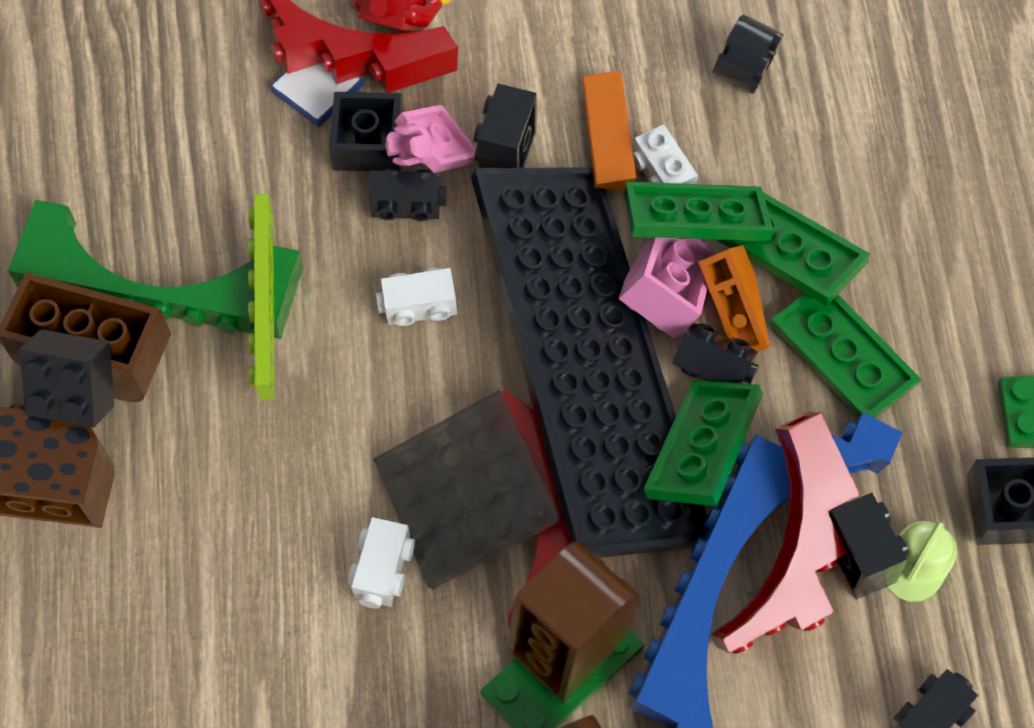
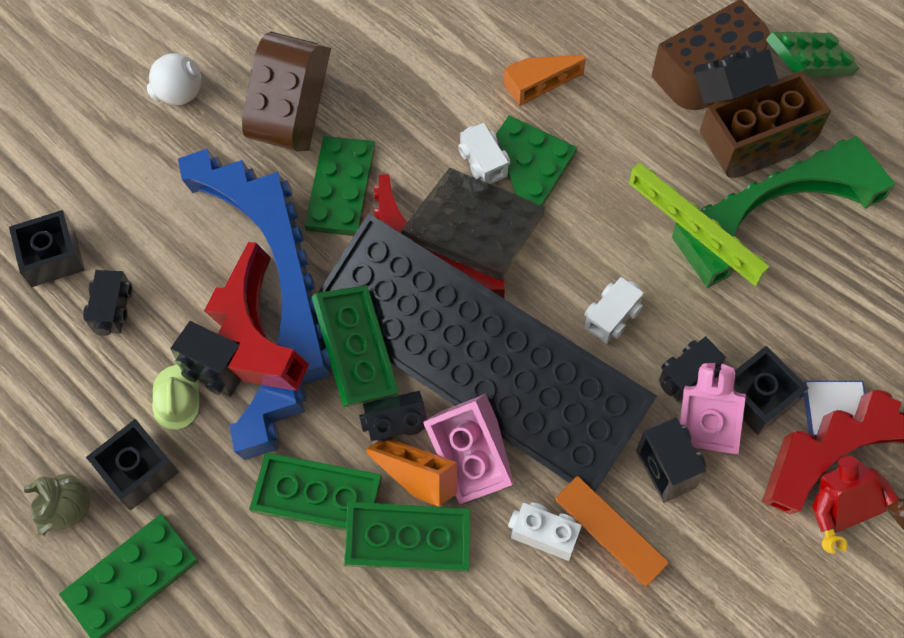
camera: 140 degrees right, 0 degrees up
(231, 619) = (540, 75): none -> orange slope
(325, 527) = (535, 159): none -> green plate
(570, 619) = (338, 161): reddish brown brick -> none
(697, 211) = (486, 495): green plate -> none

